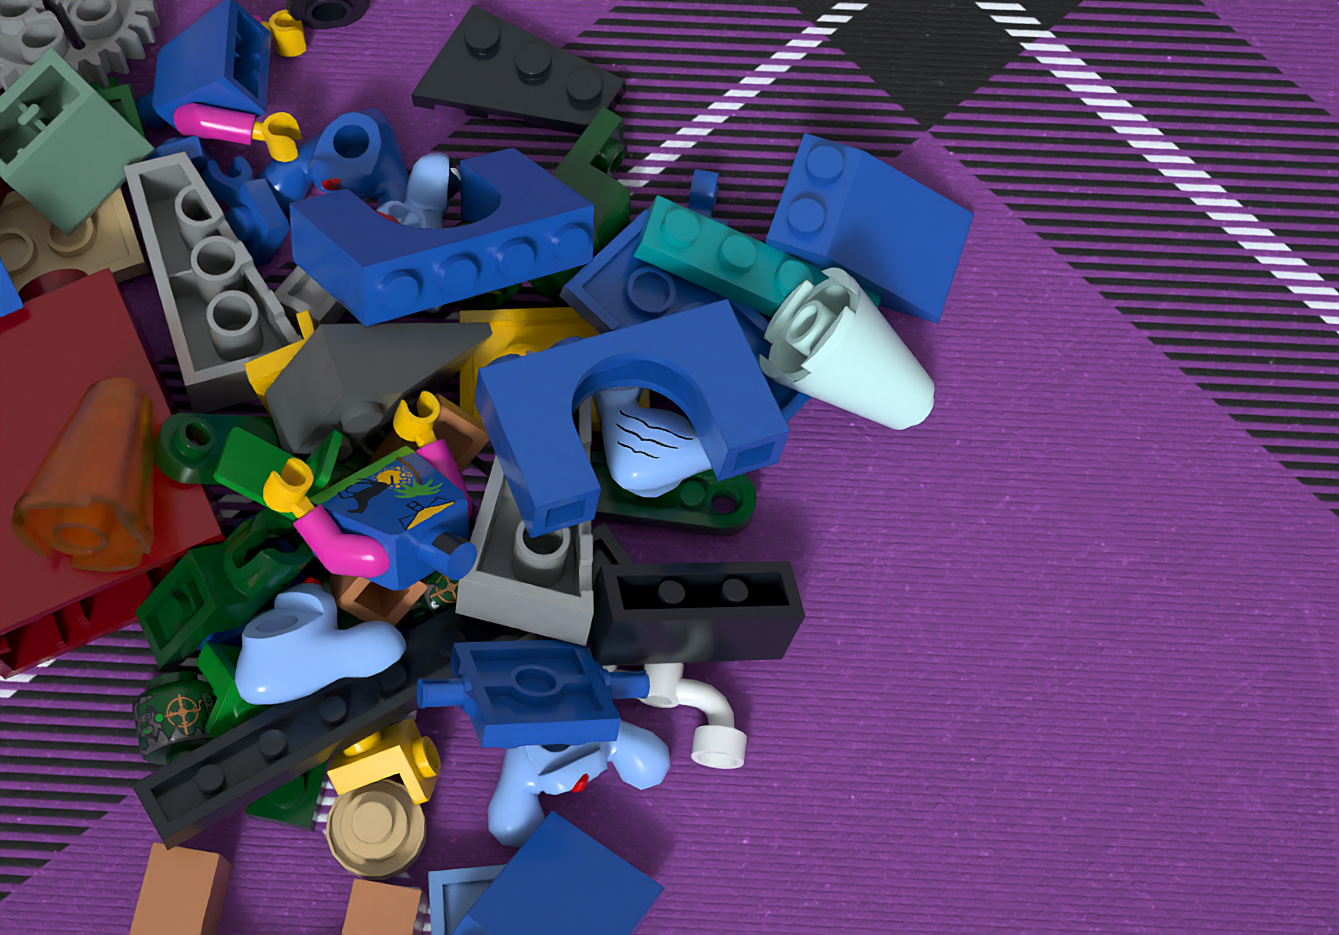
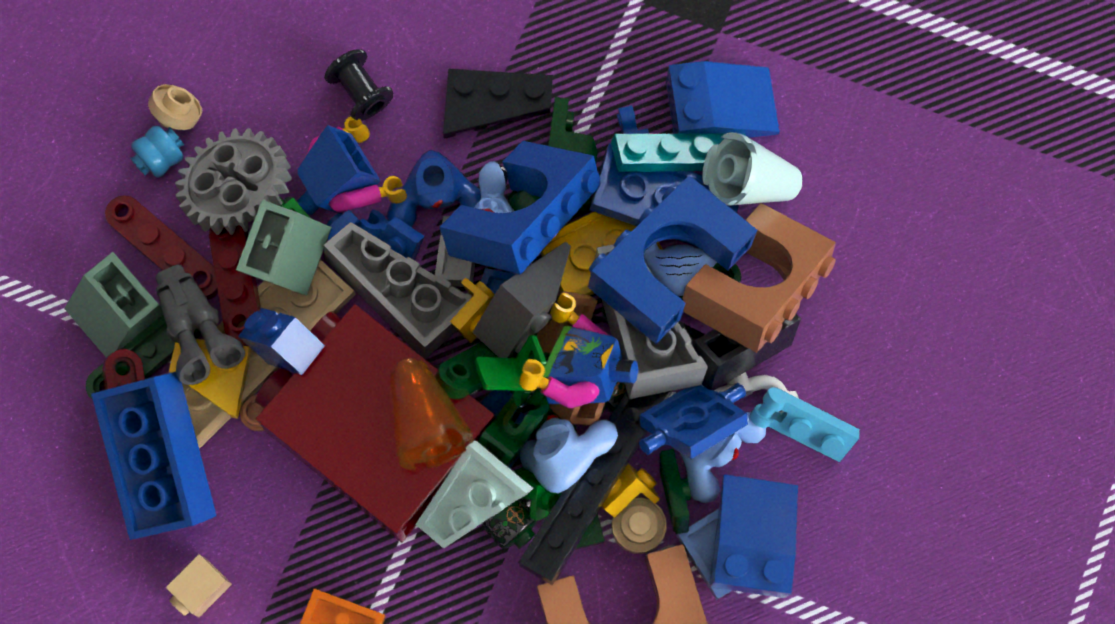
camera: 30 degrees left, 5 degrees up
(128, 646) = (470, 495): none -> light aqua wing
(457, 803) = (675, 491): none -> dark green plate
(726, 569) = (757, 313): none -> nougat arch
(728, 792) = (805, 423): none -> medium azure plate

